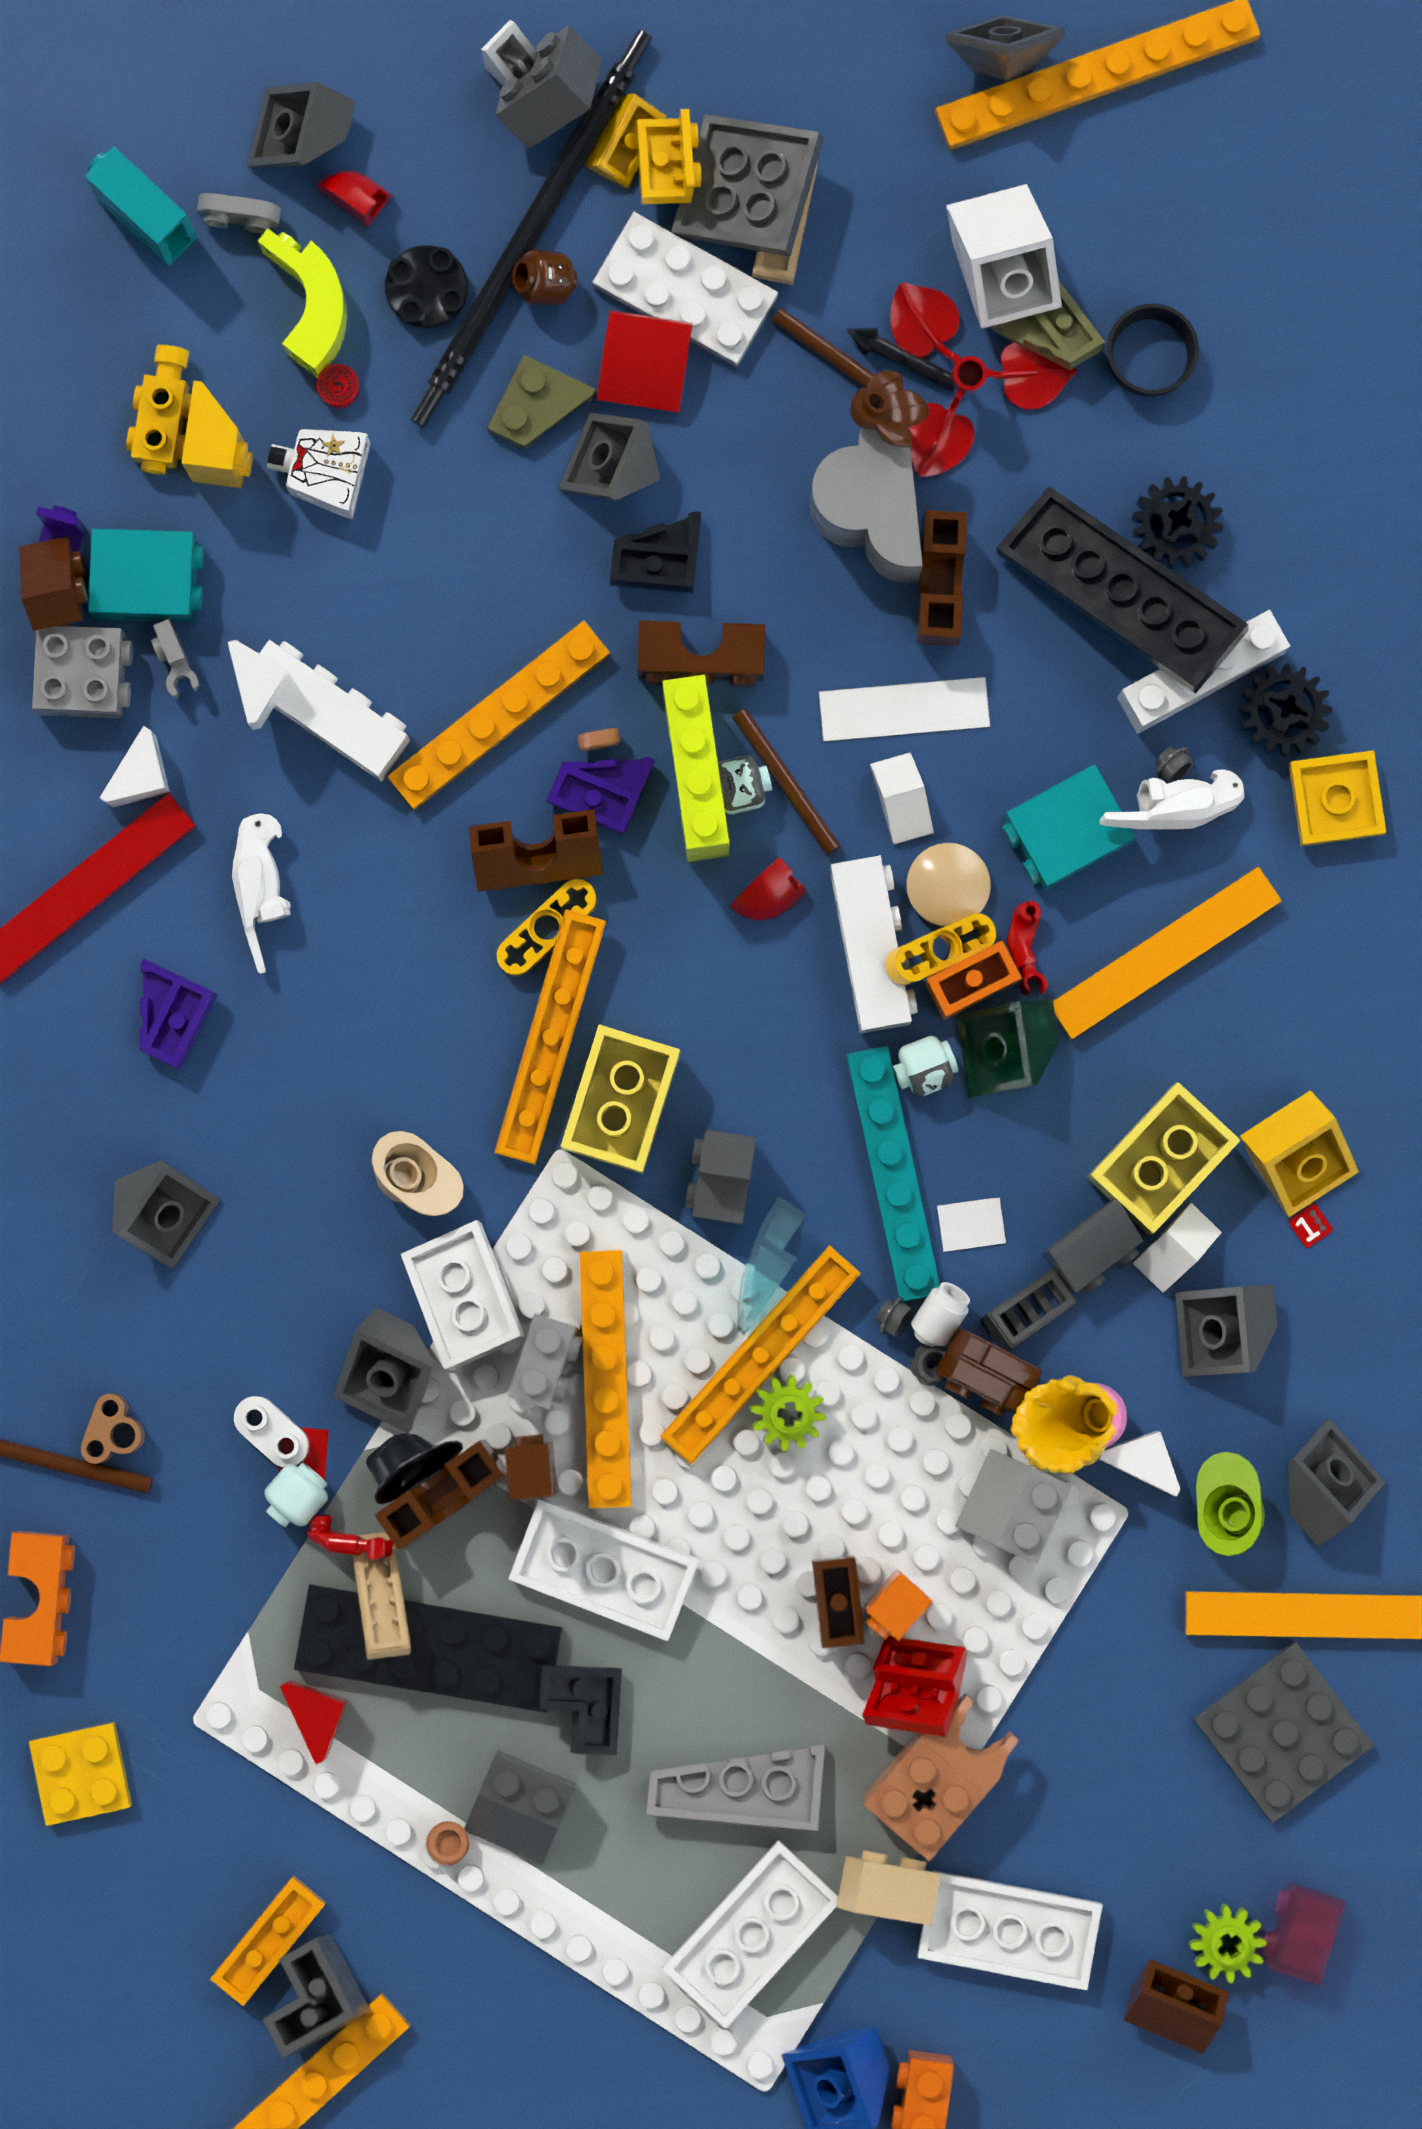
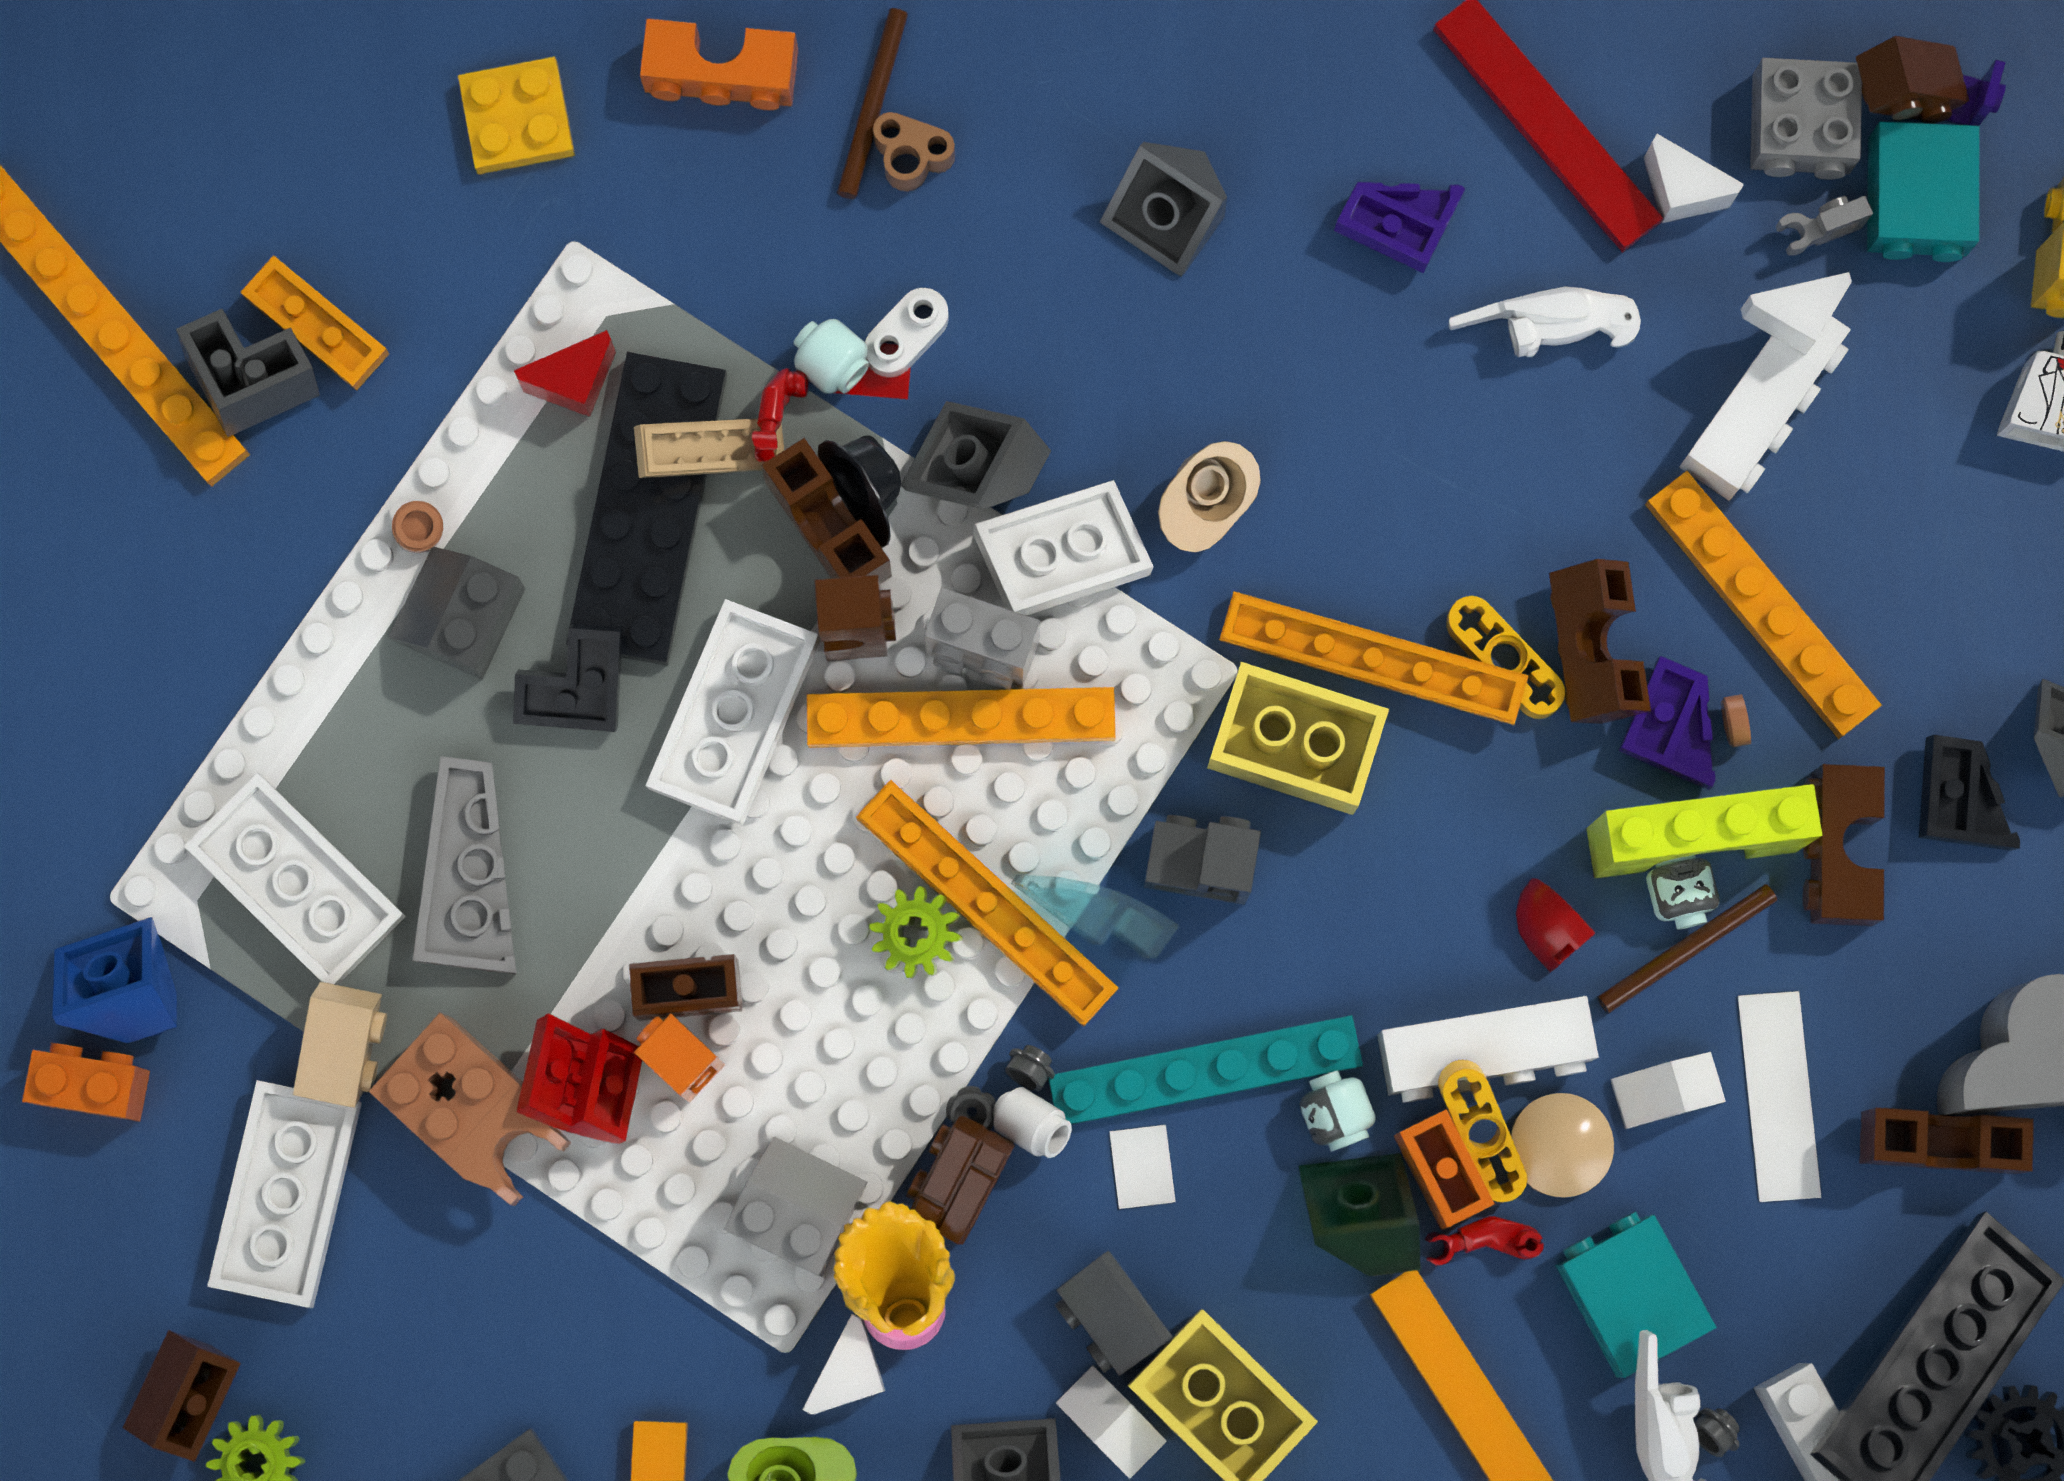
camera: 90 degrees right, 5 degrees down
(998, 1330) = (1010, 1196): dark grey slope -> none

